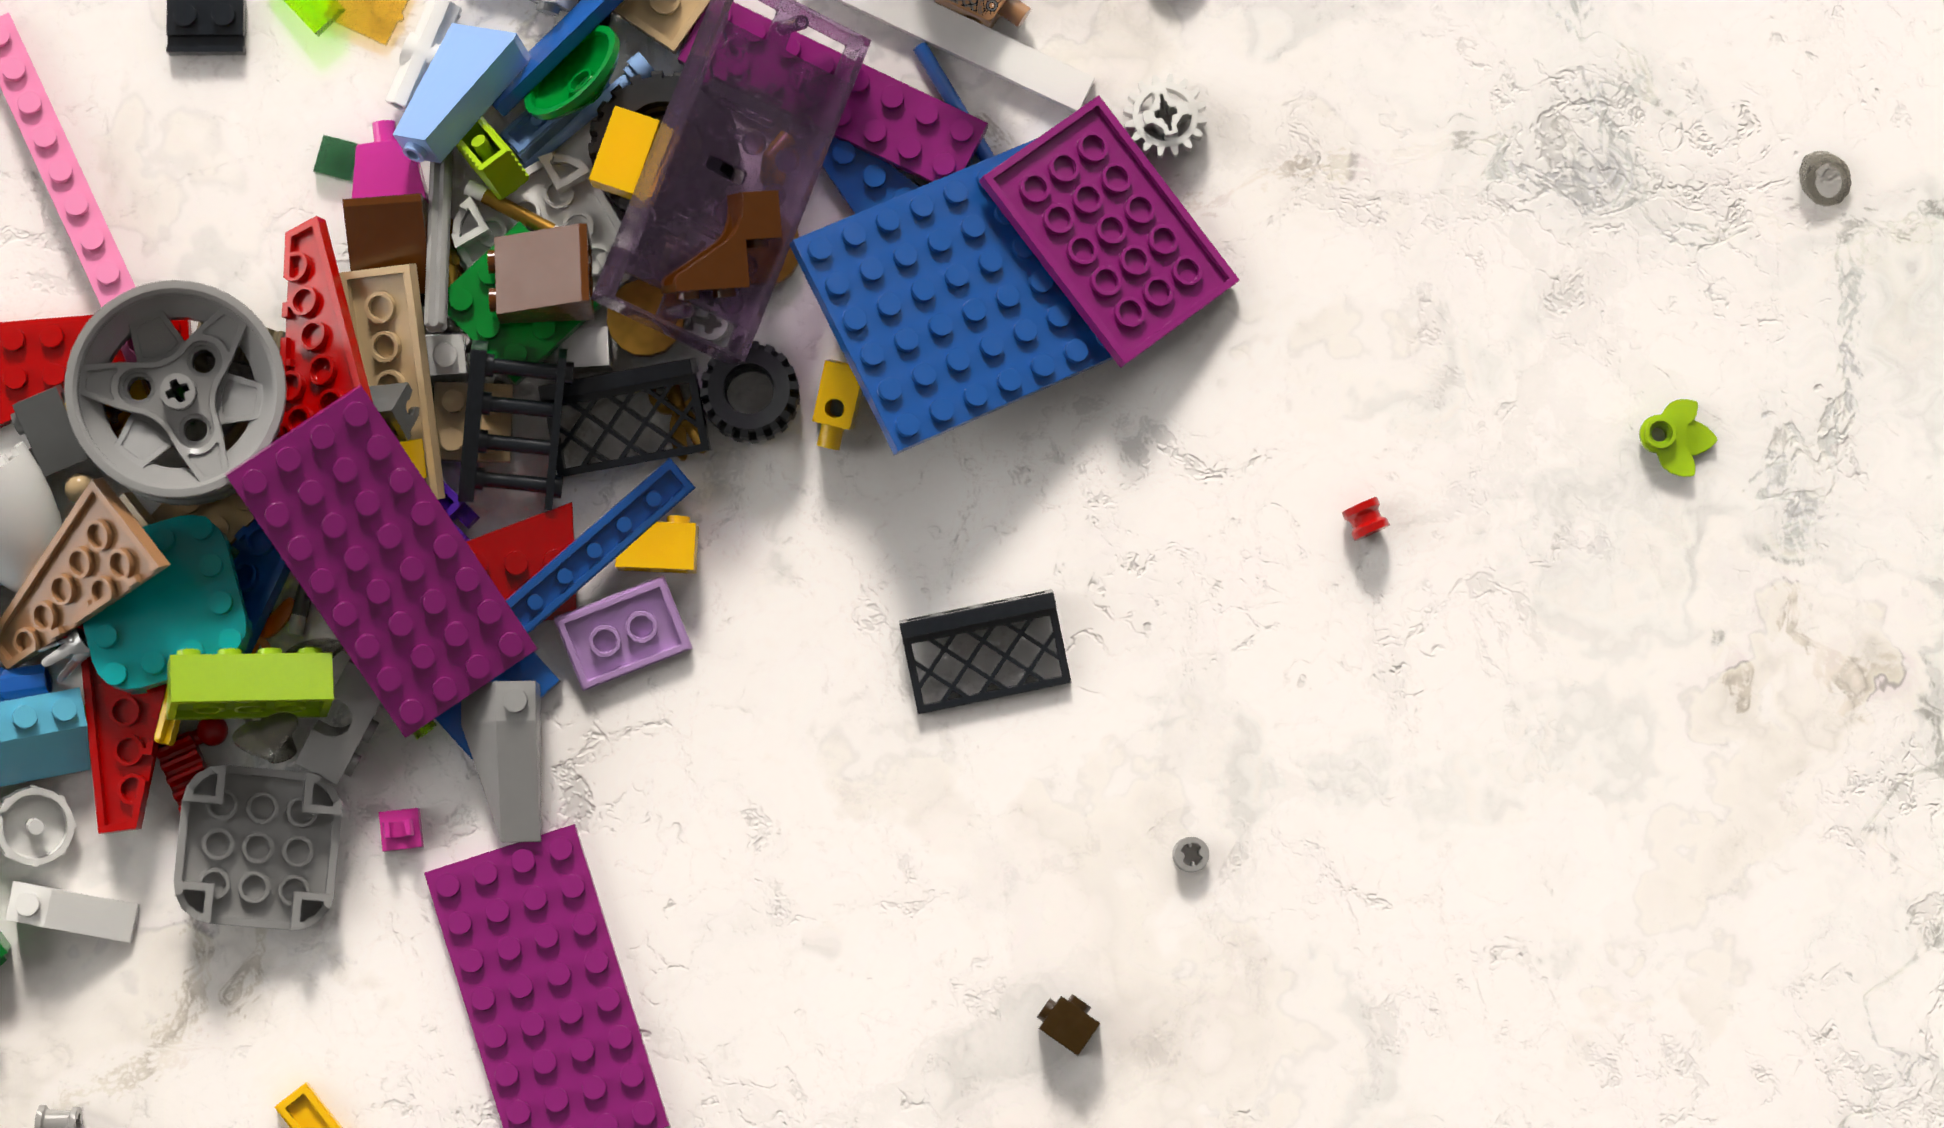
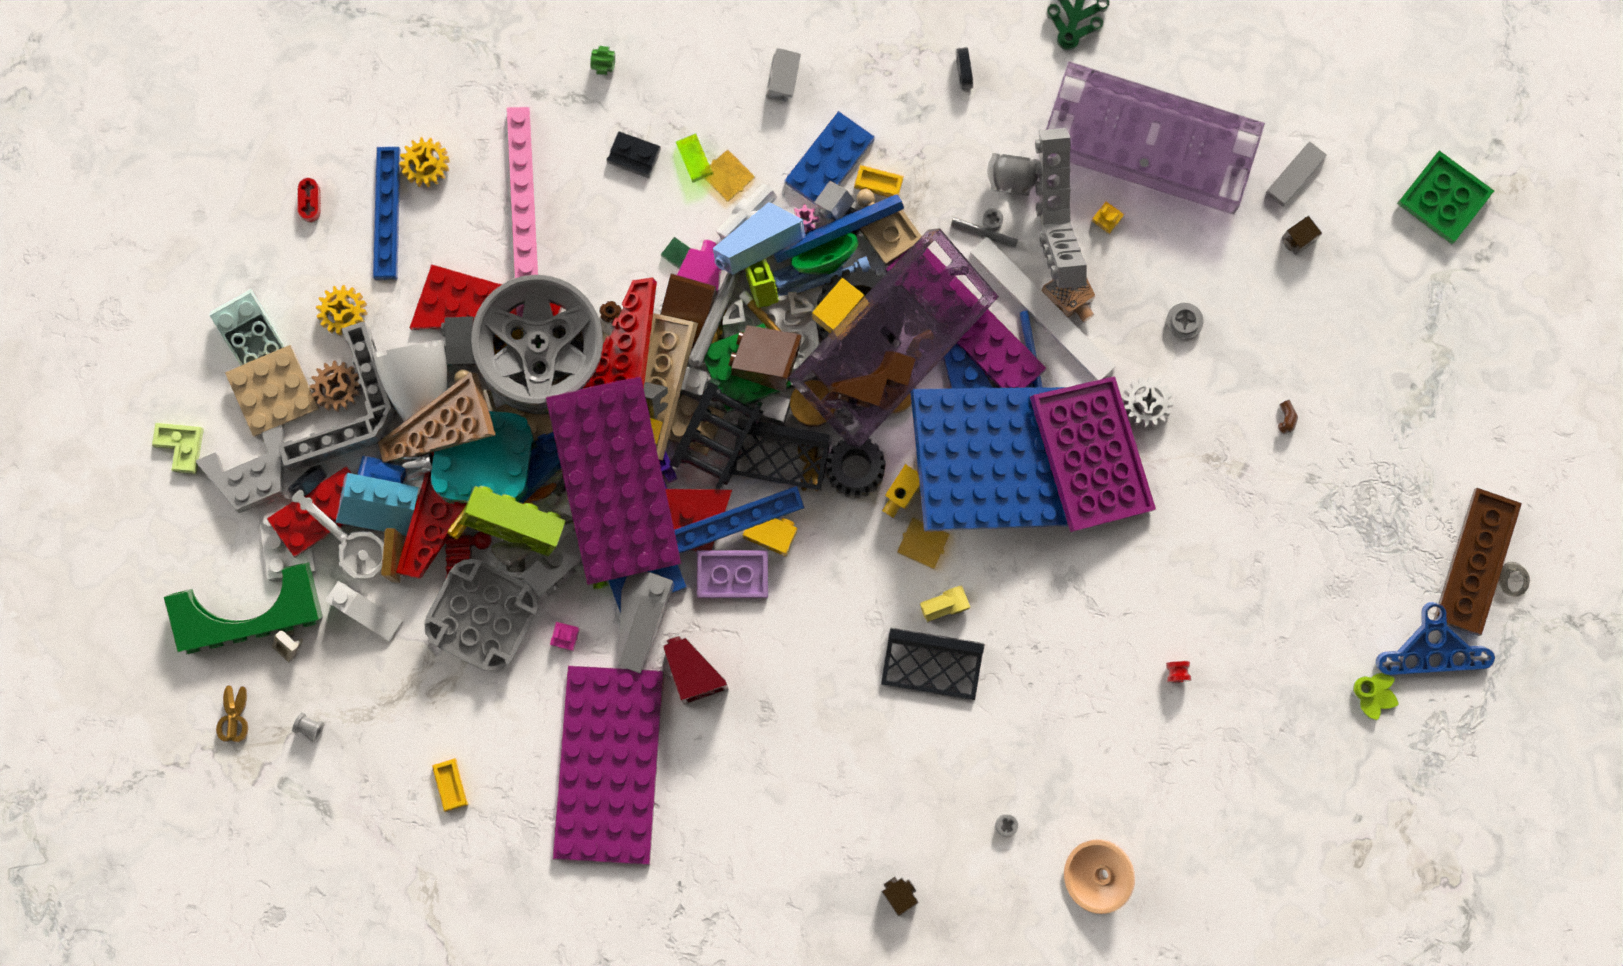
camera: 20 degrees right, 5 degrees down
(81, 808) = (391, 554): none -> pearl gold tile
(259, 291) = (610, 305): none -> reddish brown plate
(516, 18) = (807, 213): none -> bright pink gear
(619, 809) = (692, 672): none -> dark red slope
(902, 476) = (922, 545): none -> clear yellow piece
(977, 547) = (950, 602): none -> light yellow piece
(1340, 888) = (1085, 877): none -> light nougat dish
(1395, 57) = (1290, 418): none -> reddish brown arm
(1723, 340) = (1446, 647): none -> blue beam
(1760, 171) = (1478, 560): none -> reddish brown plate

